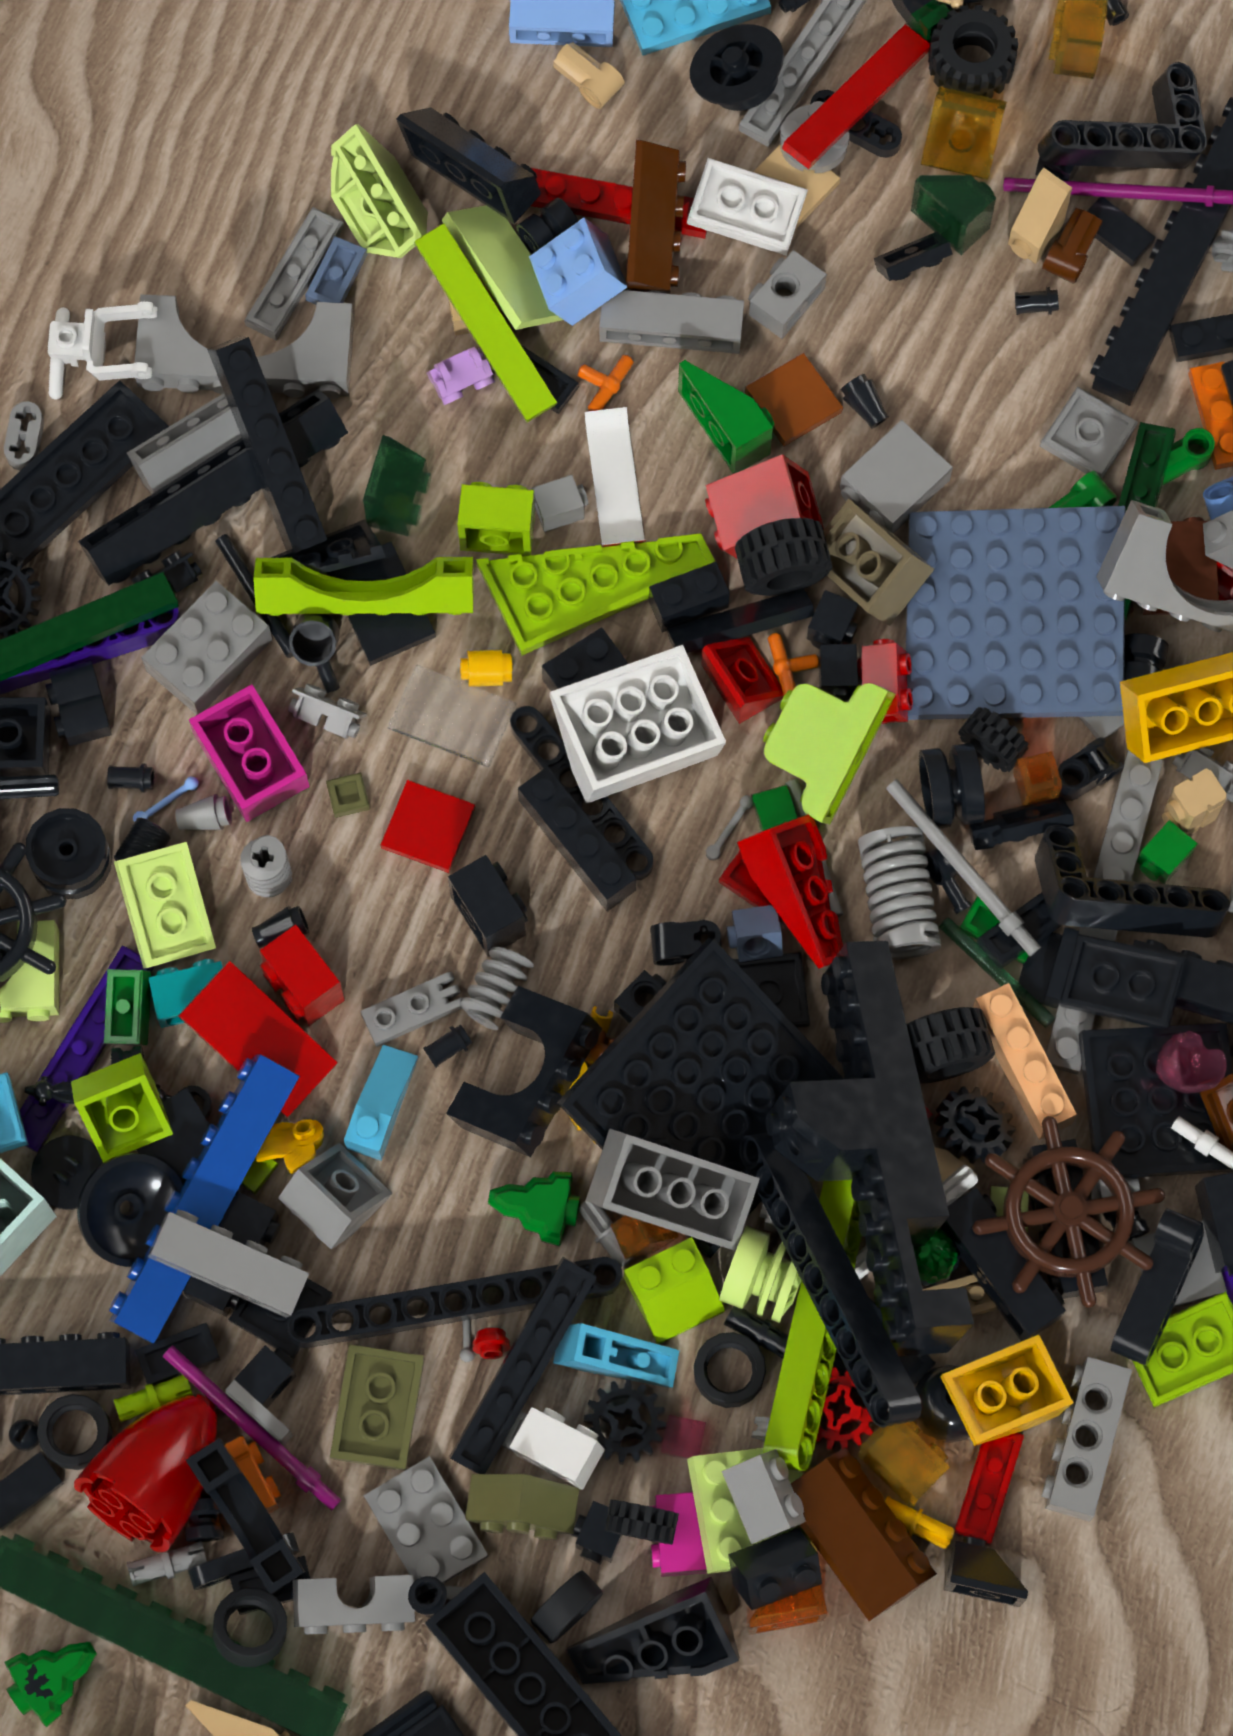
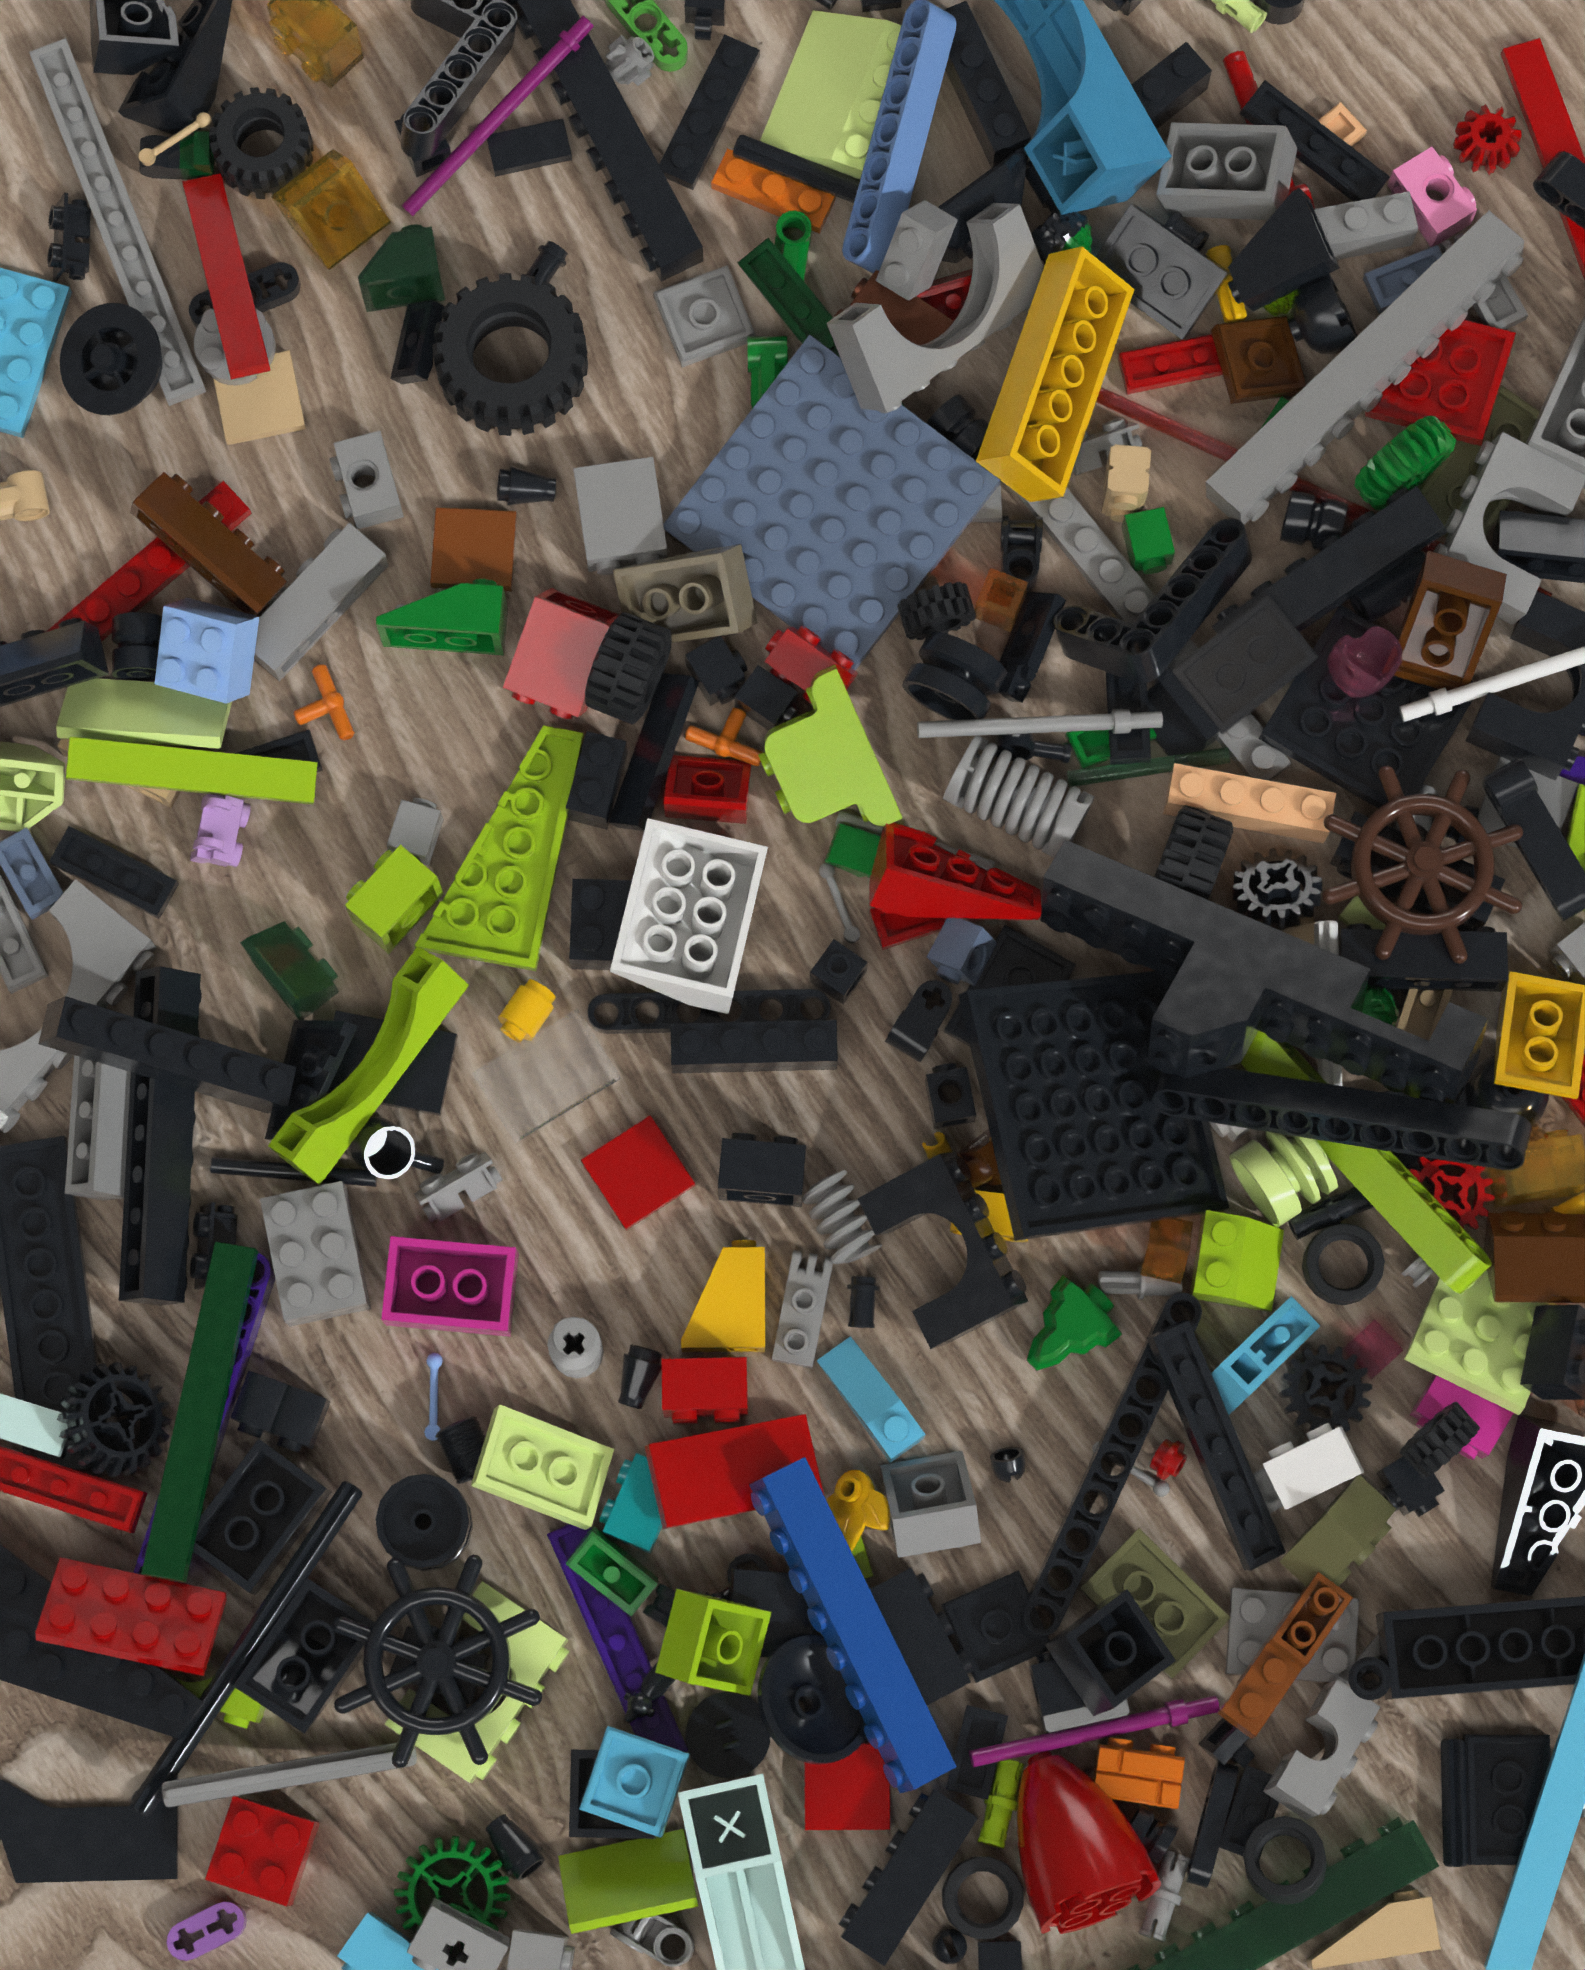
camera: 55 degrees left, 5 degrees up
(84, 1284) = (848, 1793): none -> red tile
(131, 777) = (388, 1413): black pin -> none
(205, 814) = (476, 1369): light grey cone -> none
(229, 1264) = (937, 1646): light grey brick -> none
(246, 1515) = (1194, 1792): black arch -> none
(311, 1391) = (1110, 1652): none -> black brick
(312, 1530) = (1227, 1742): none -> black tile
(347, 795) = (553, 1224): olive tile -> none
(378, 328) = (113, 872): none -> black plate
(379, 954) = (732, 1304): none -> yellow slope
(401, 1523) = (1284, 1655): none -> dark orange slope
(405, 1230) = (1008, 1463): none -> black hinge
(566, 1606) = (1460, 1560): black tyre -> none
(614, 476) = (426, 765): white sticker -> none
(672, 1189) = (1162, 1195): light grey brick -> none
(676, 859) = (838, 971): none -> black brick
(747, 206) = (255, 452): white tile -> none
(764, 1496) = (1493, 1314): light grey brick -> none
(960, 280) = (510, 305): none -> black tyre
(1040, 217) = (474, 202): tan slope -> none
(1068, 254) = (522, 204): reddish brown piece -> none

